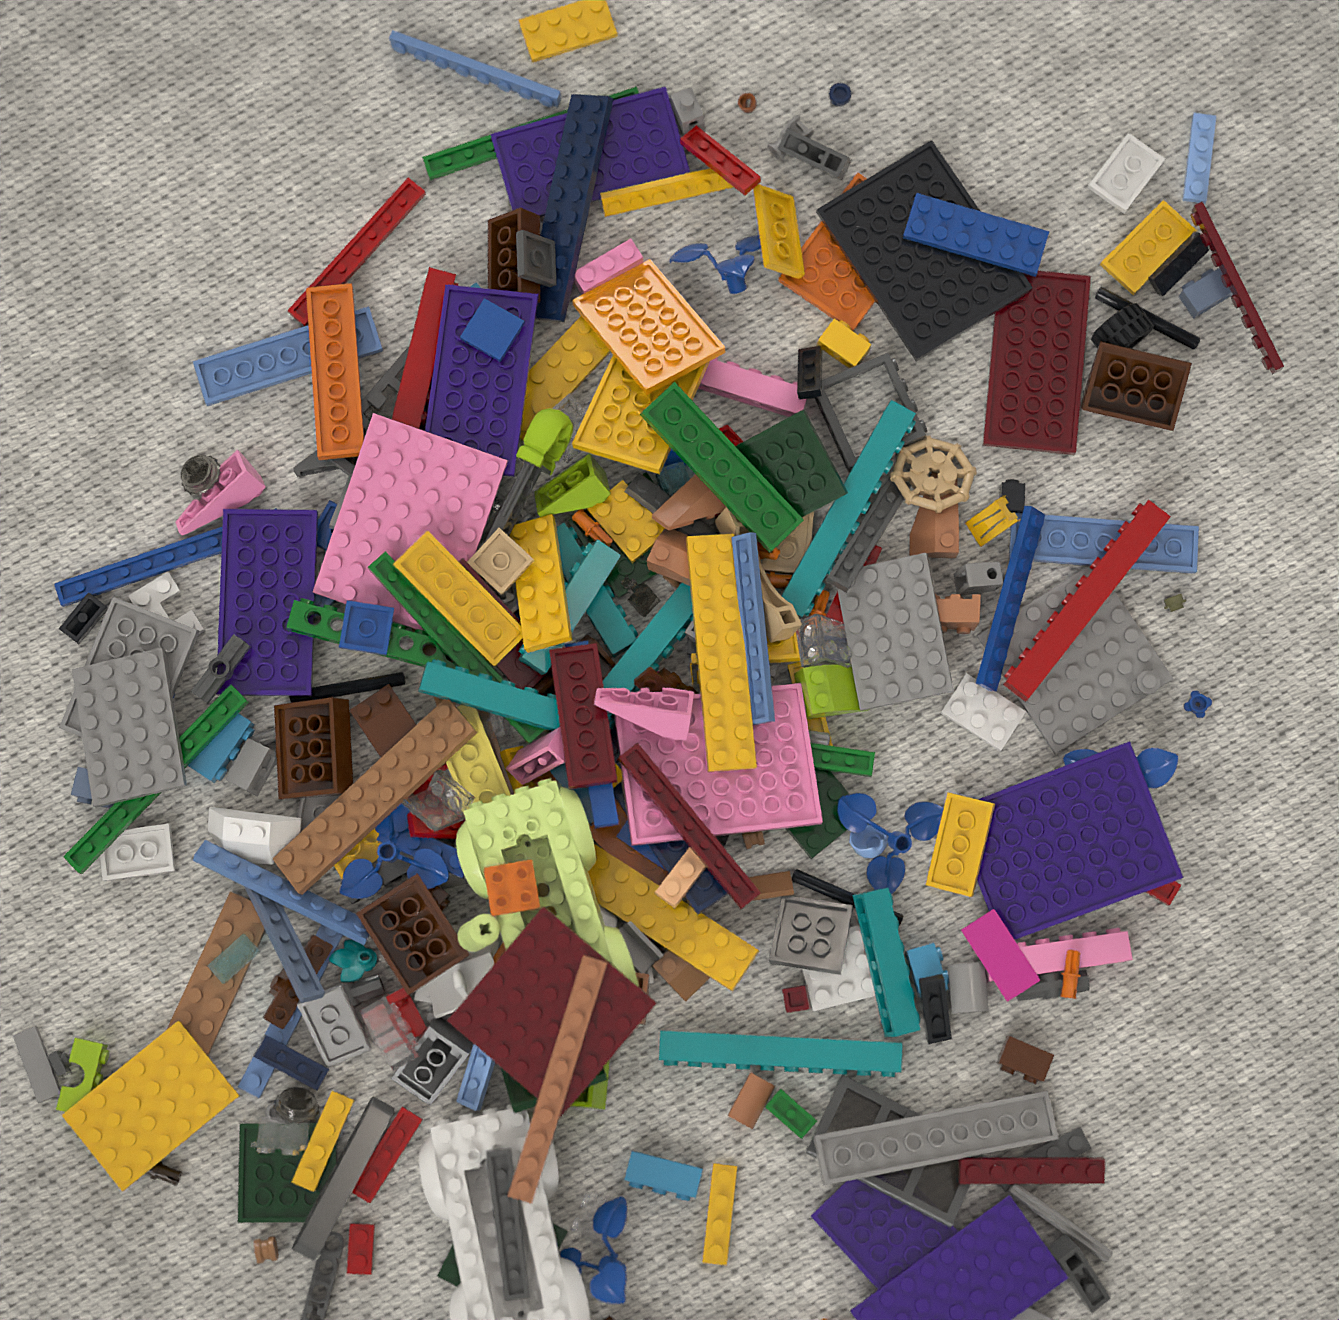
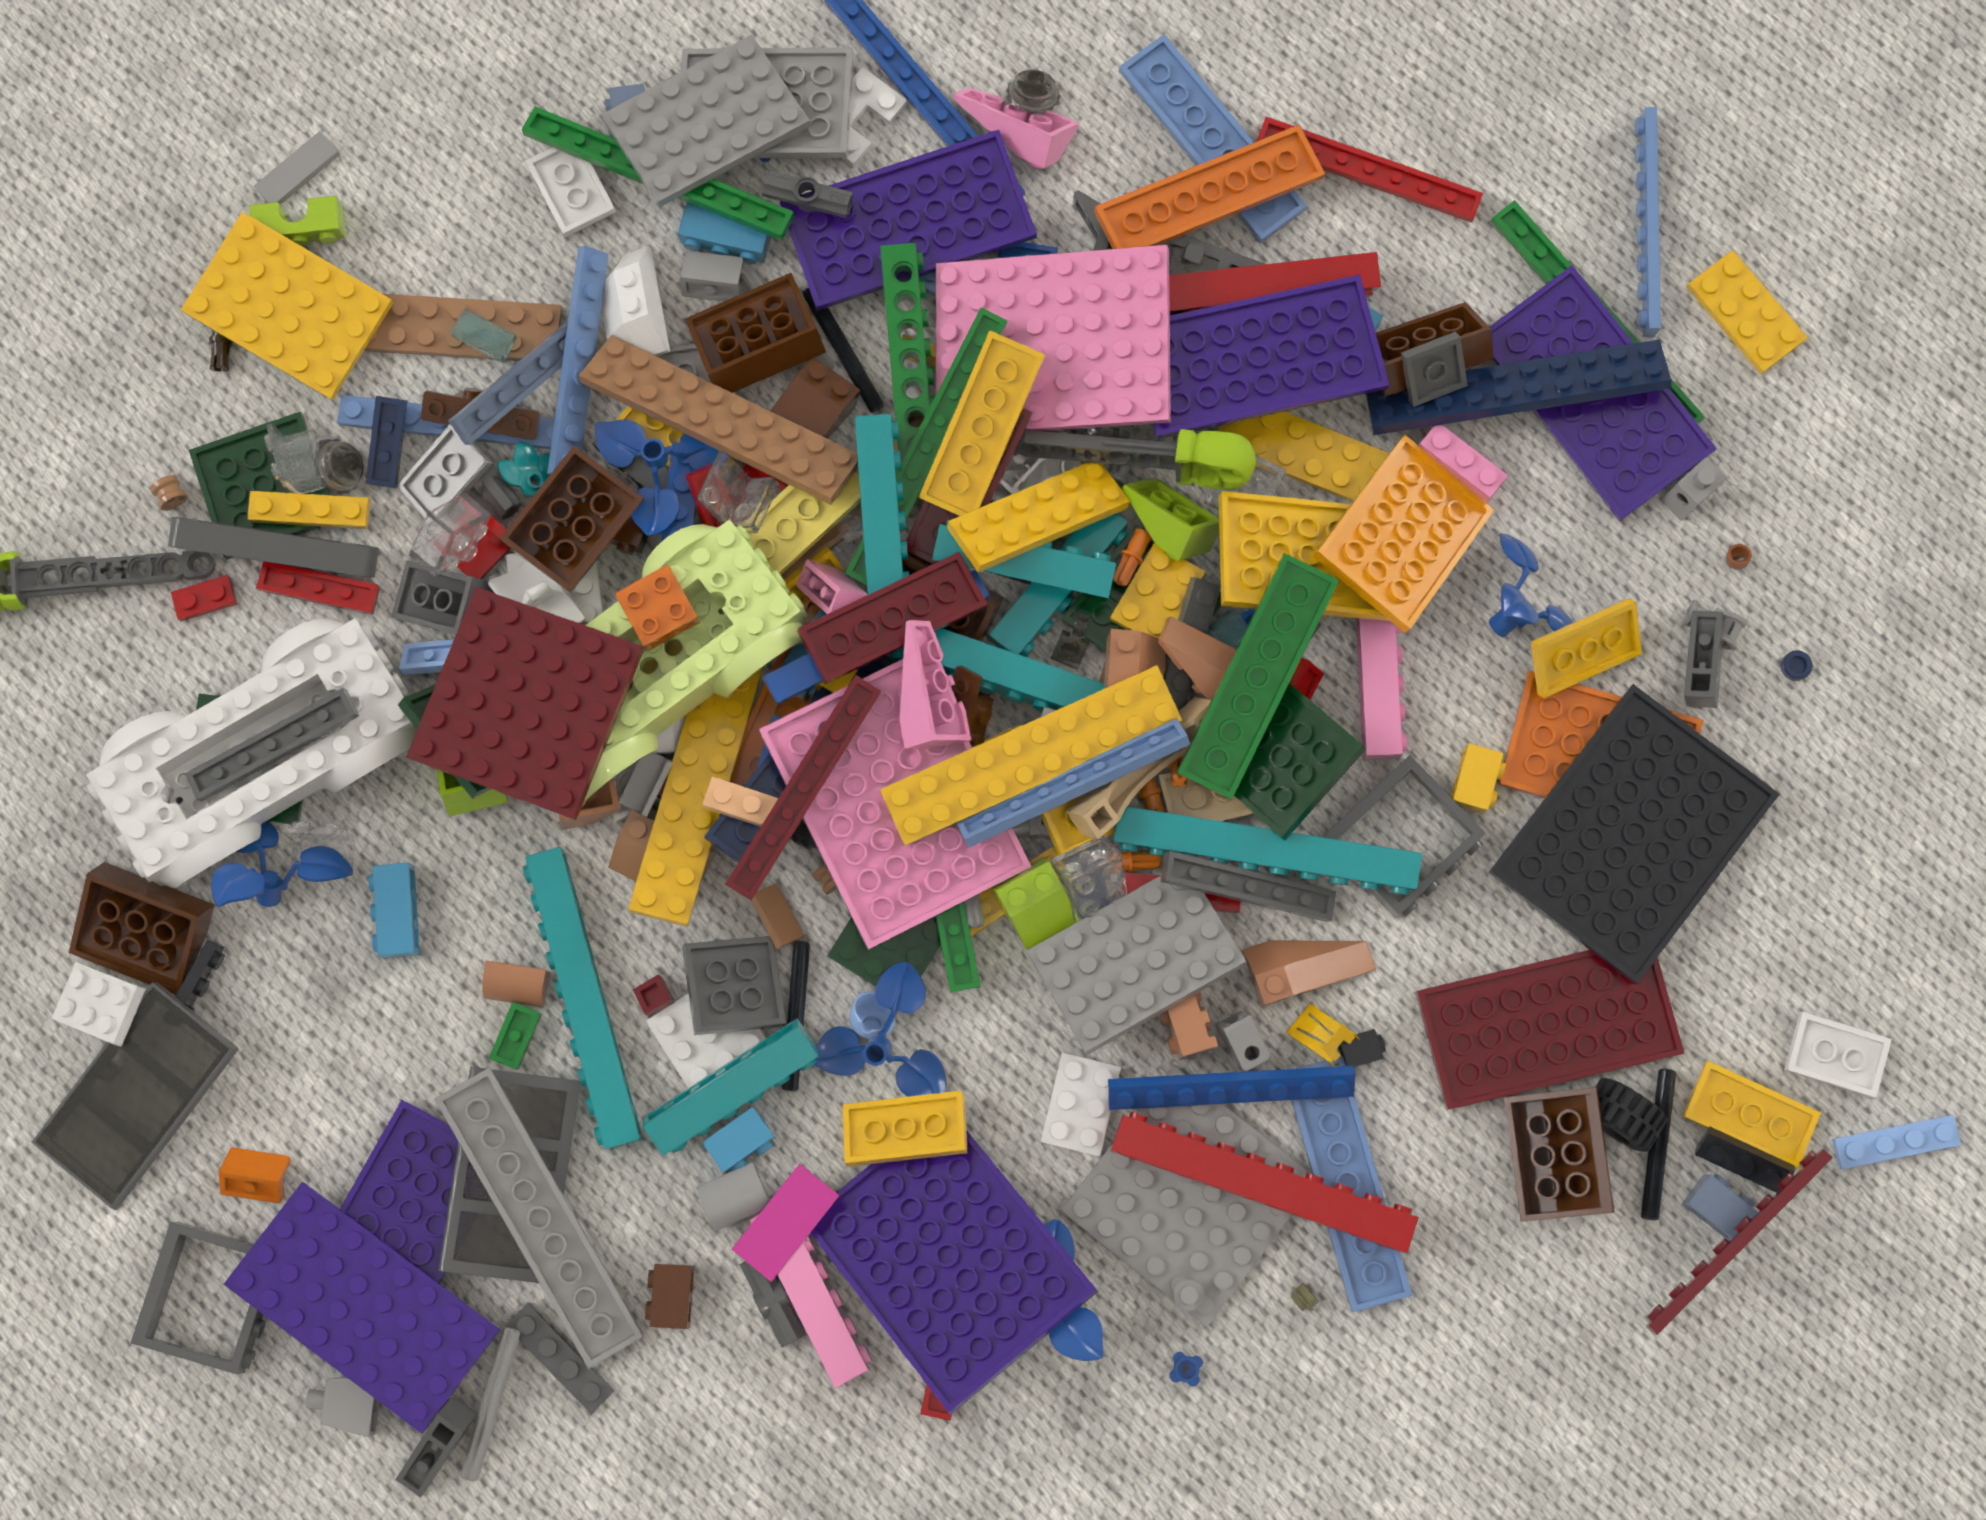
camera: 70 degrees right, 0 degrees up
(60, 1063) = (303, 190): dark grey plate -> none
(83, 618) = (817, 27): black slope -> none
(366, 628) = (911, 335): blue plate -> none
(478, 932) = (599, 600): yellowish green piece -> none
(492, 330) = (1323, 347): blue tile -> none
(500, 561) = (1046, 458): tan plate -> none
(557, 1079) = (448, 735): nougat plate -> none
(662, 191) = (1589, 501): yellow plate -> none
(719, 1214) = (372, 993): yellow plate -> none
(720, 160) = (1648, 546): red plate -> none
(809, 372) = (1422, 746): black plate -> none
(935, 1009) = (693, 1164): black plate -> none
(937, 463) = (1369, 937): tan plate -> none
(976, 234) = (1678, 889): blue plate -> none
(1031, 1170) = (539, 1348): dark red plate -> none
(1070, 974) = (789, 1316): orange axle -> none

